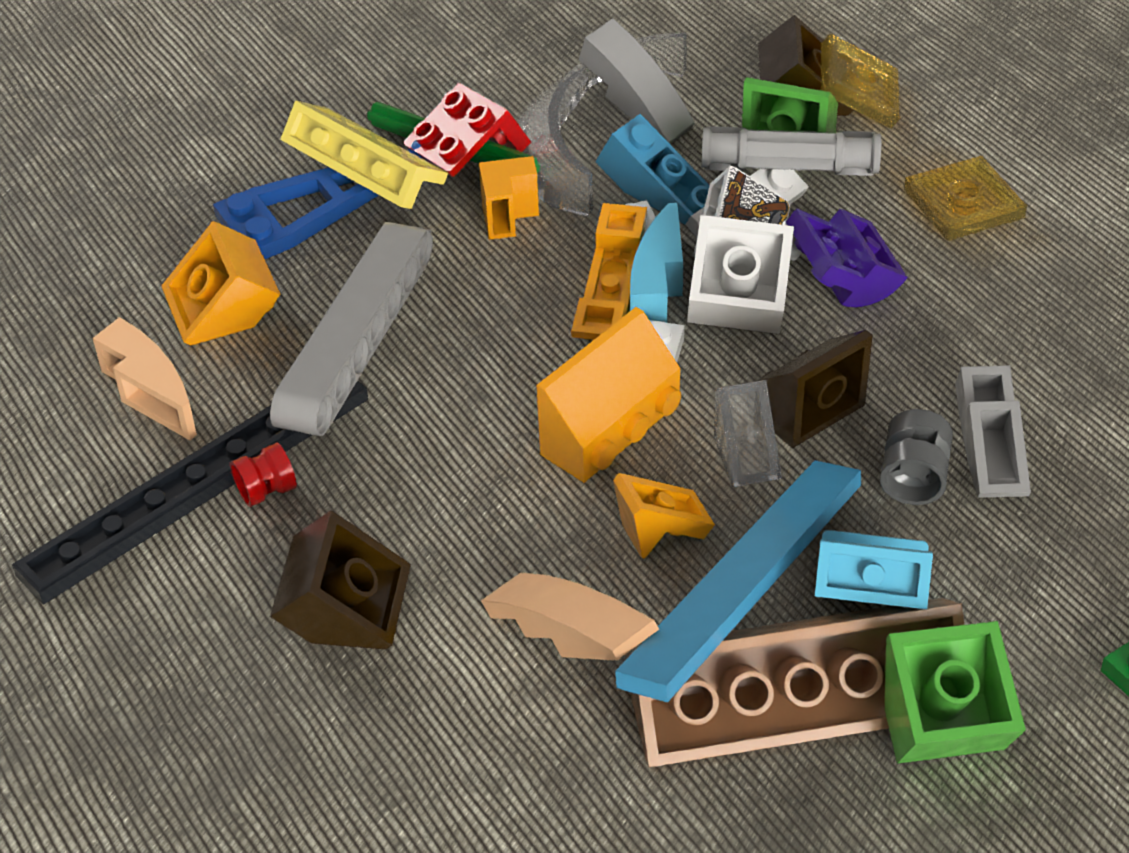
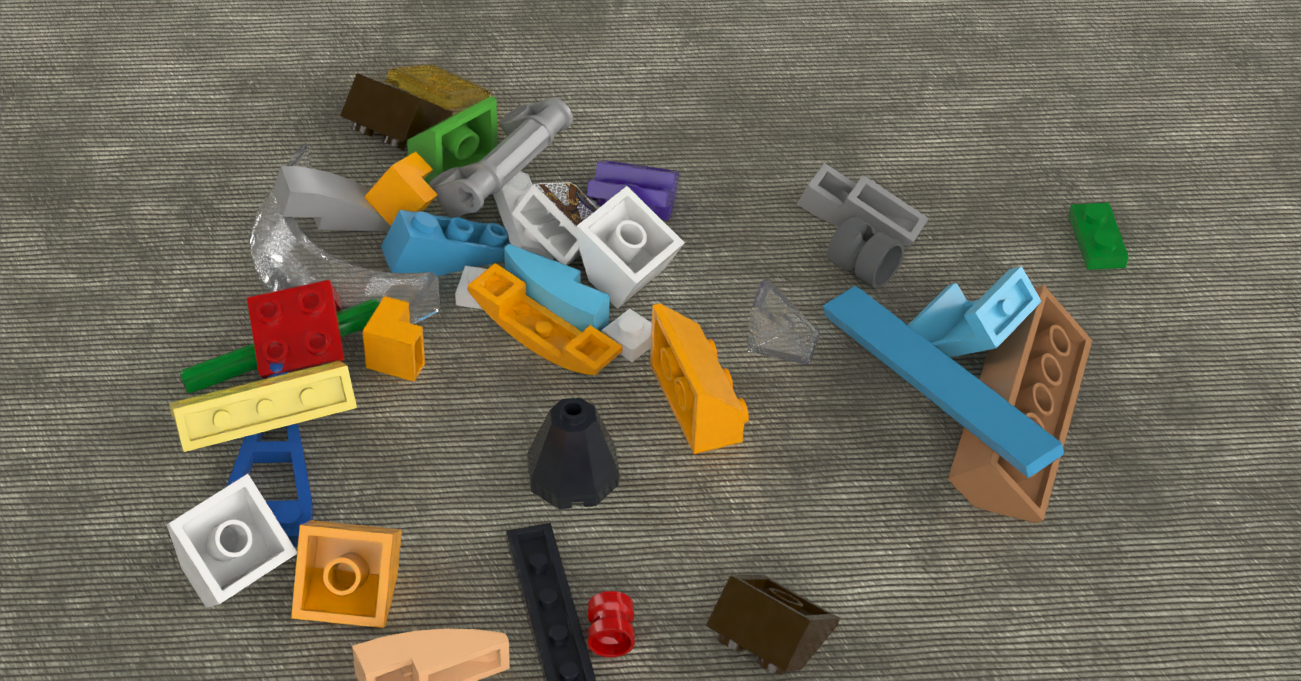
camera: 65 degrees left, 0 degrees up
(178, 194) = (229, 541): none -> white slope
(351, 330) = (486, 496): light grey beam -> none
(450, 362) = (573, 456): none -> black cone
(572, 615) = (922, 483): light nougat slope -> none
(654, 508) = (826, 412): light orange slope -> none
(686, 109) = (402, 188): none -> light orange piece
(819, 387) = (759, 252): dark brown slope -> none
(950, 692) = (1102, 334): bright green slope -> none
(965, 198) = (612, 104): clear yellow plate -> none

